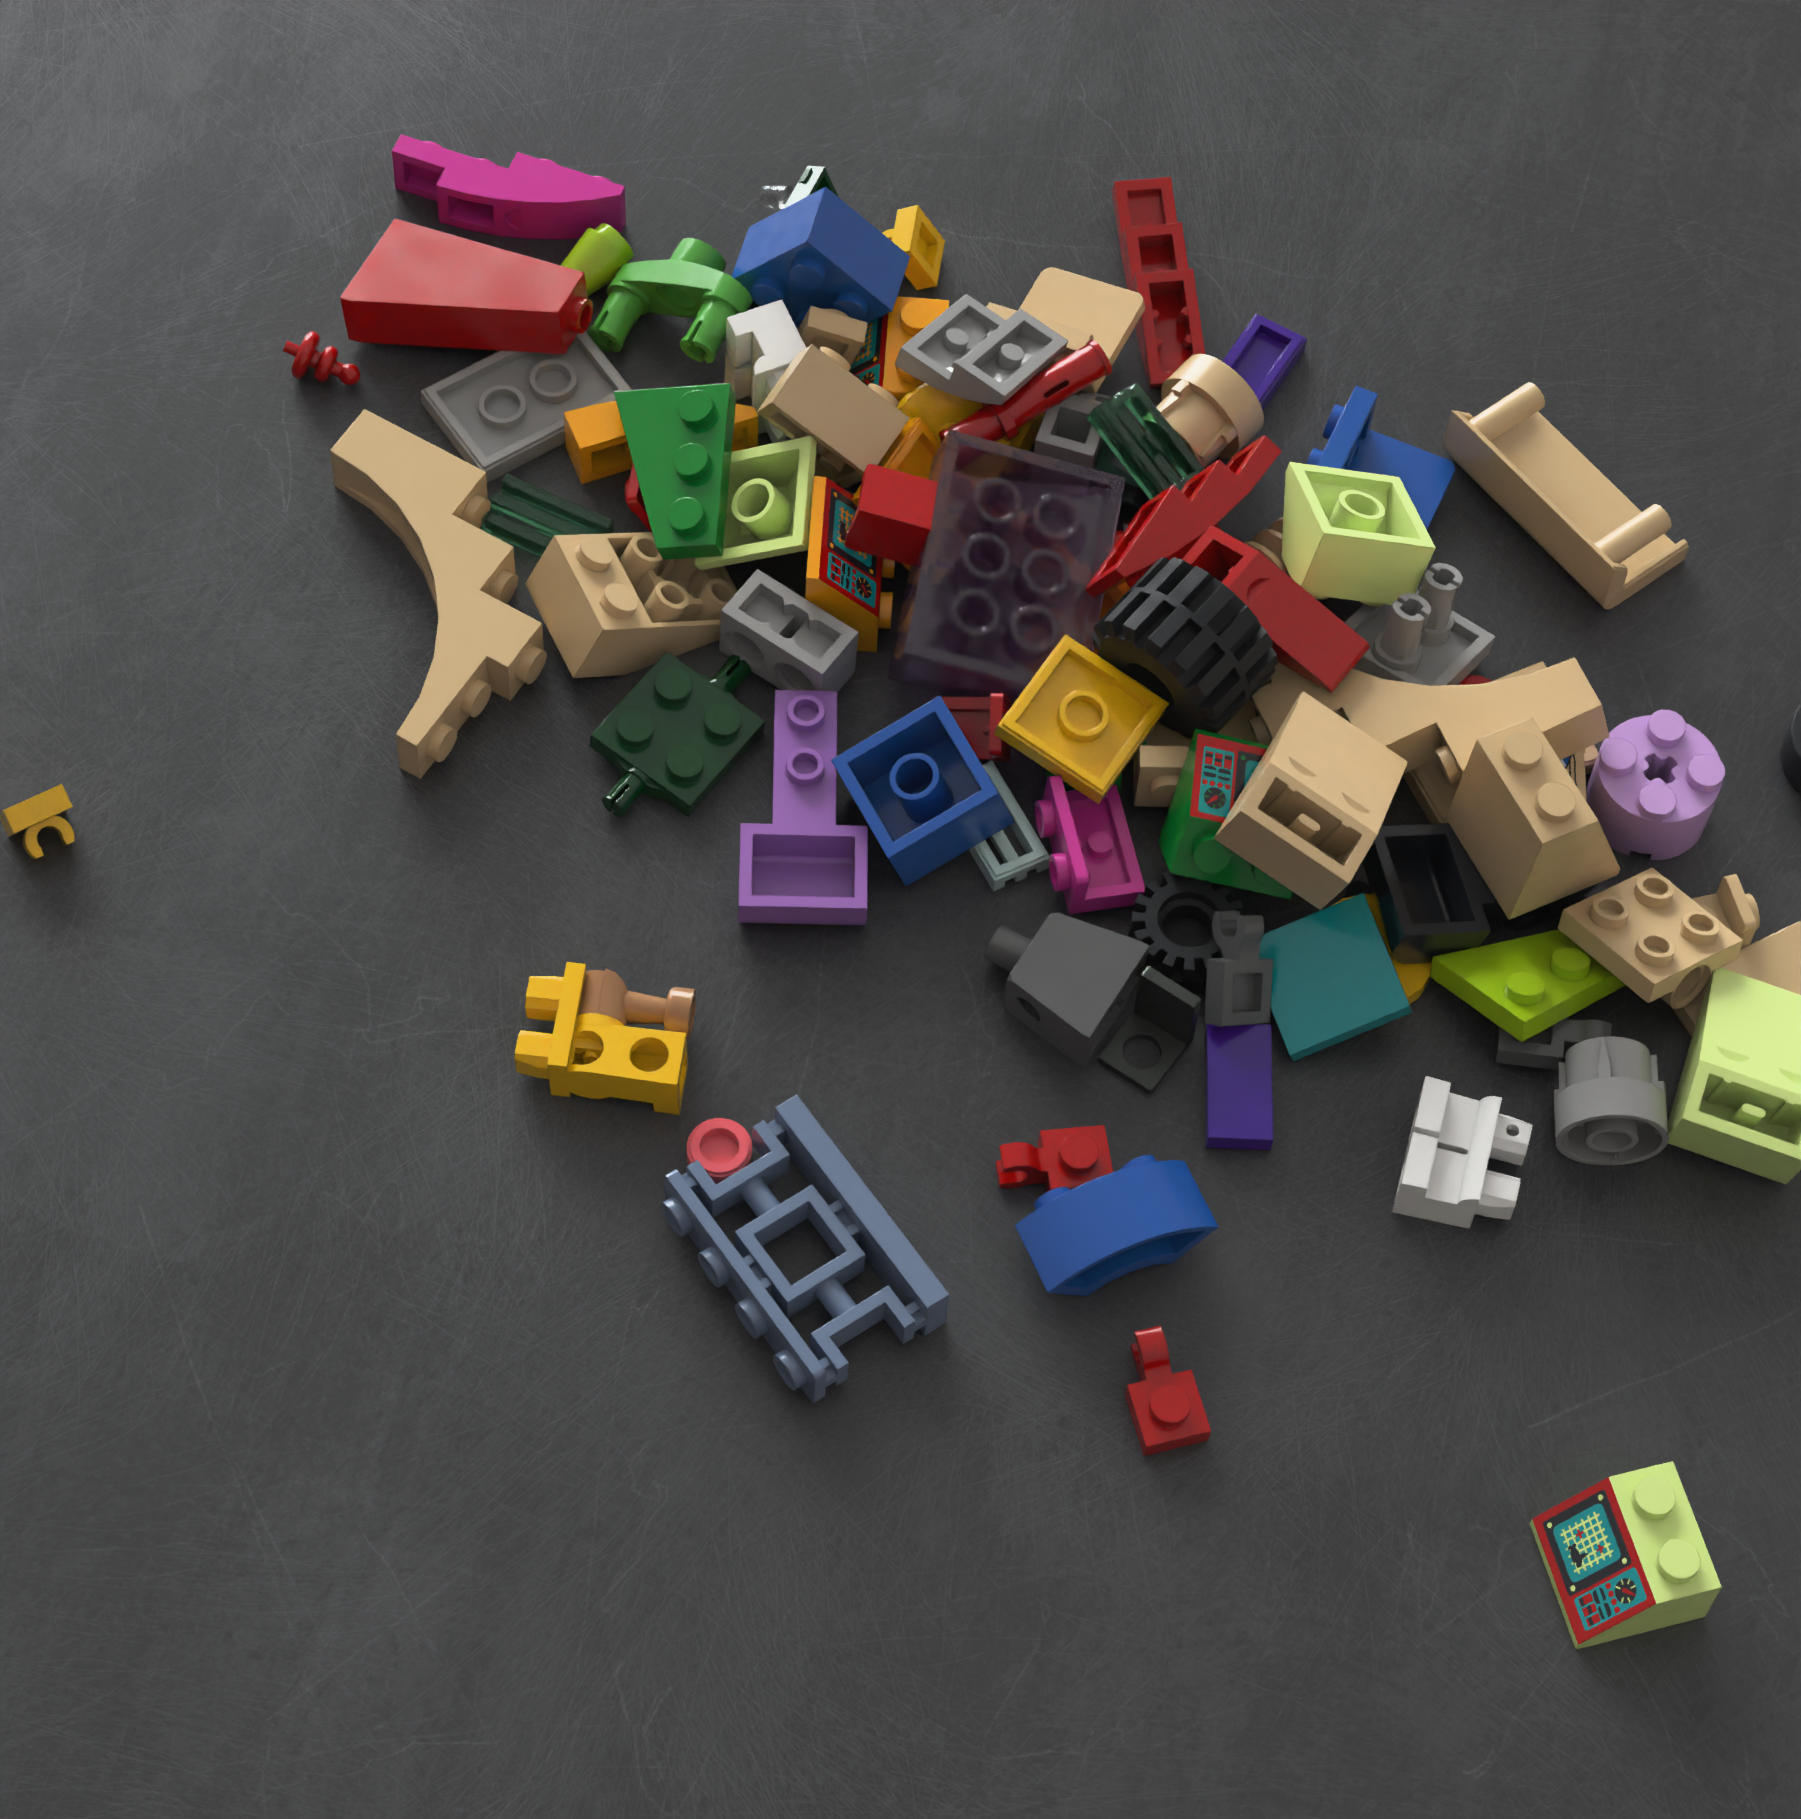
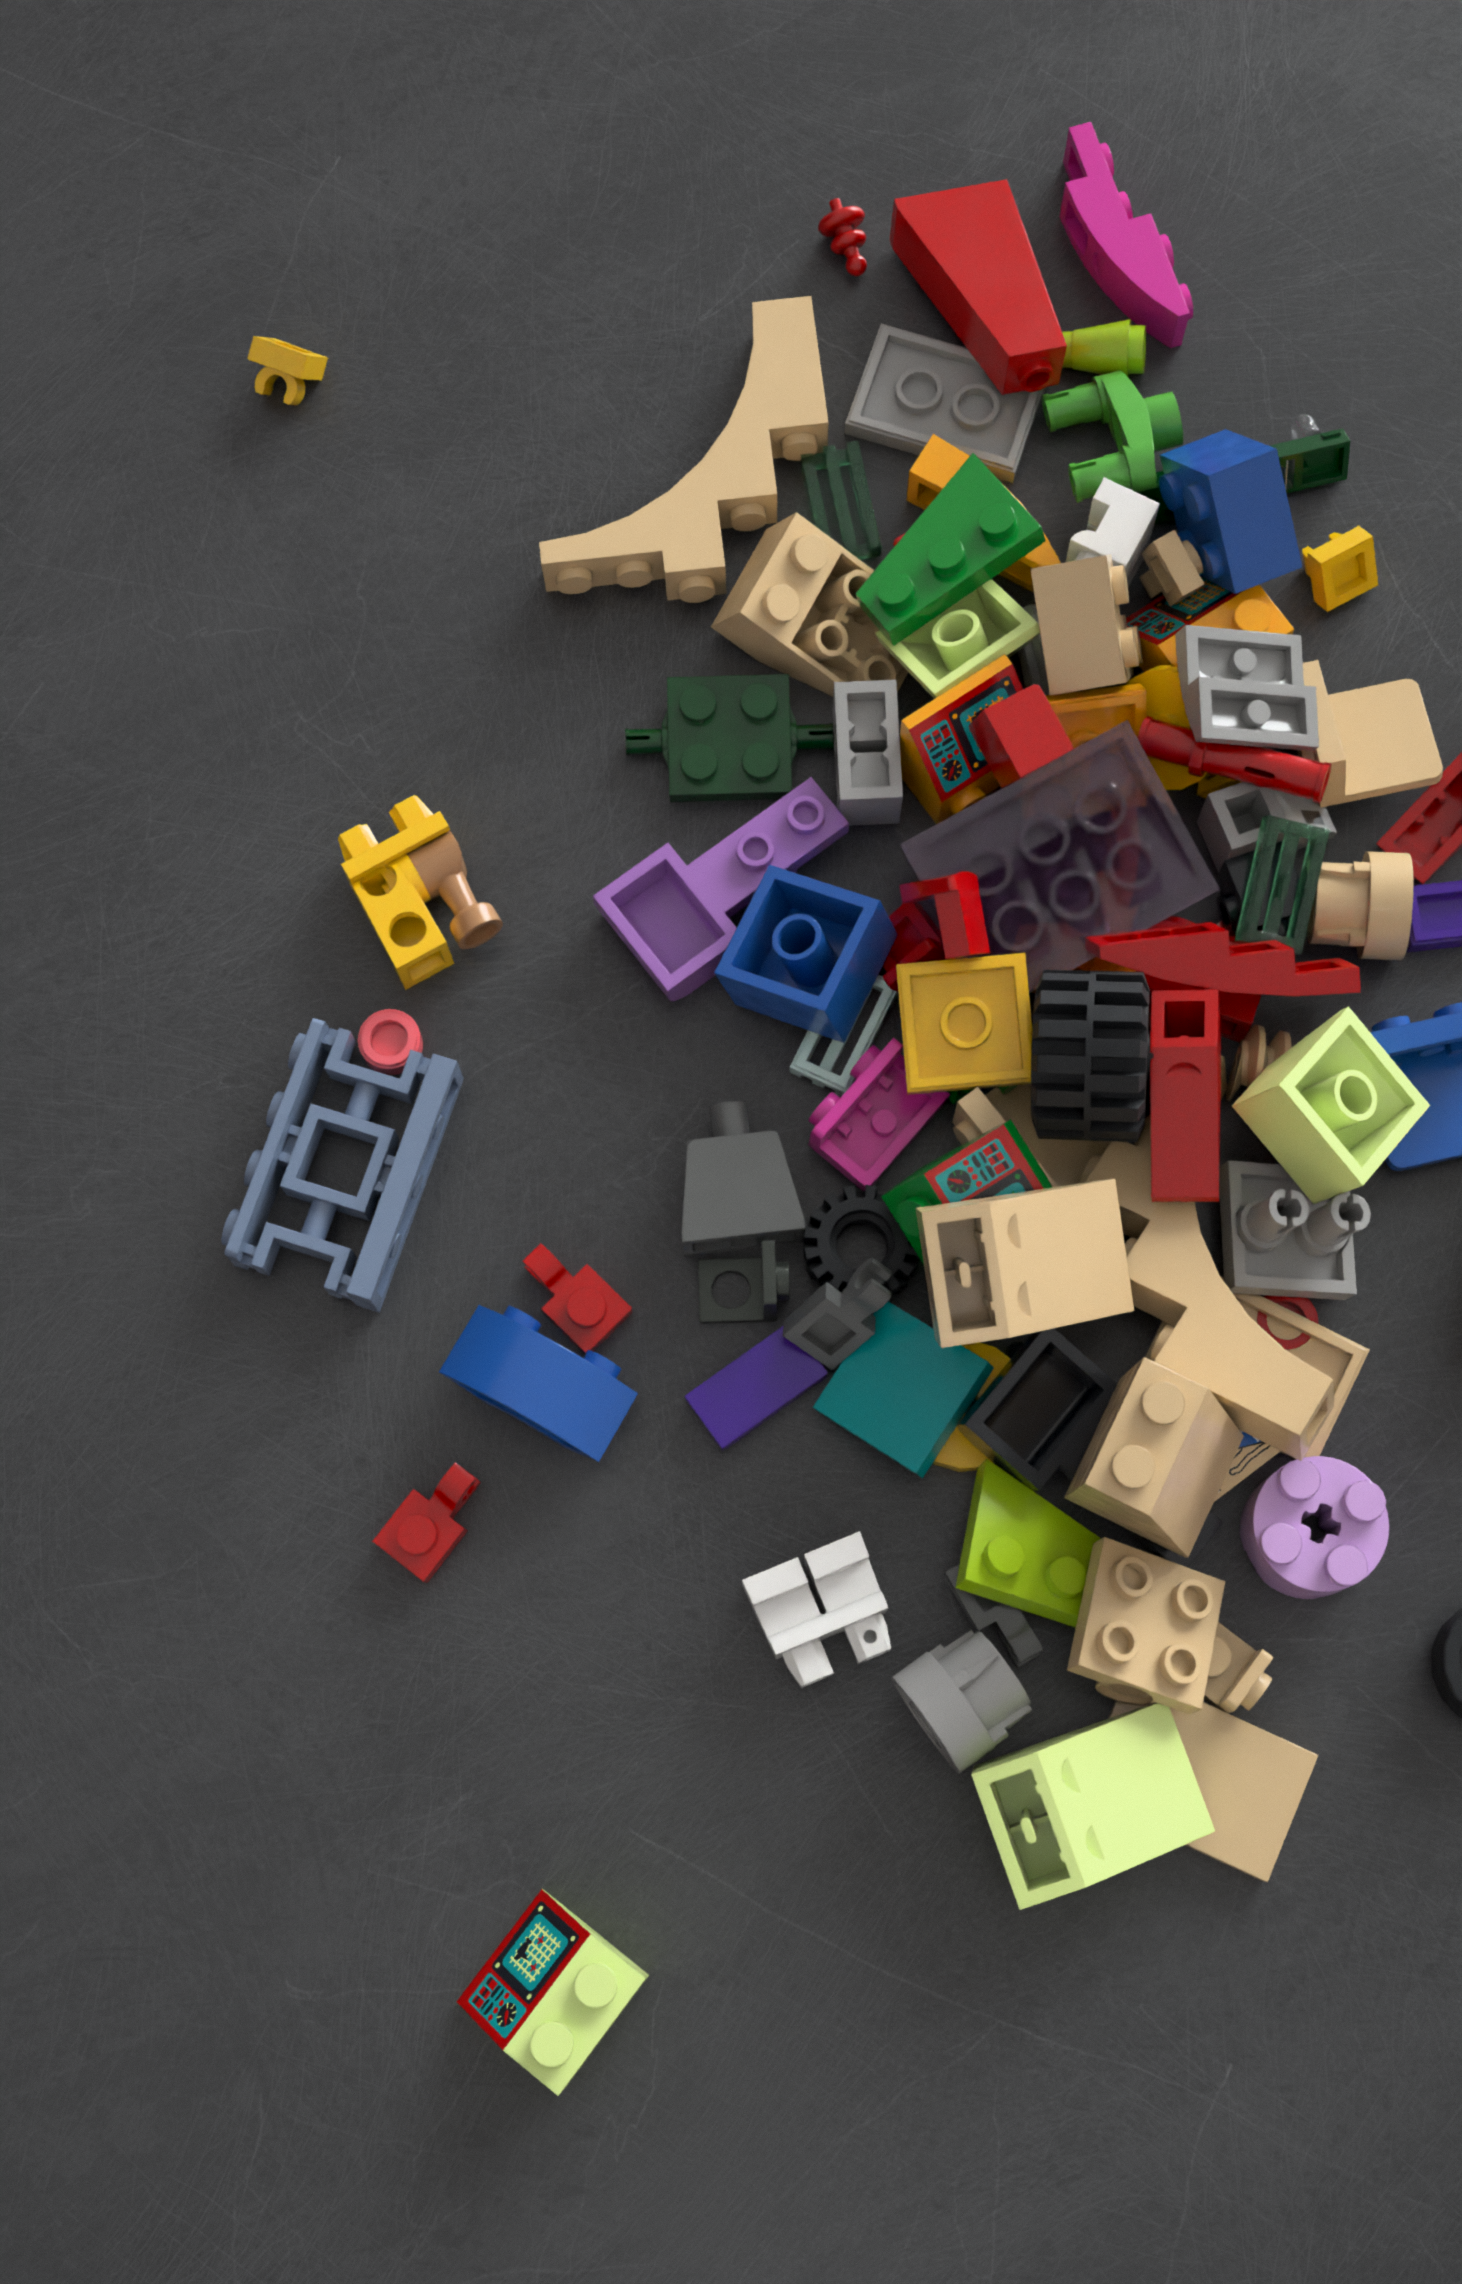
camera: 60 degrees right, 15 degrees up
(996, 645) = (957, 910): none -> red tile

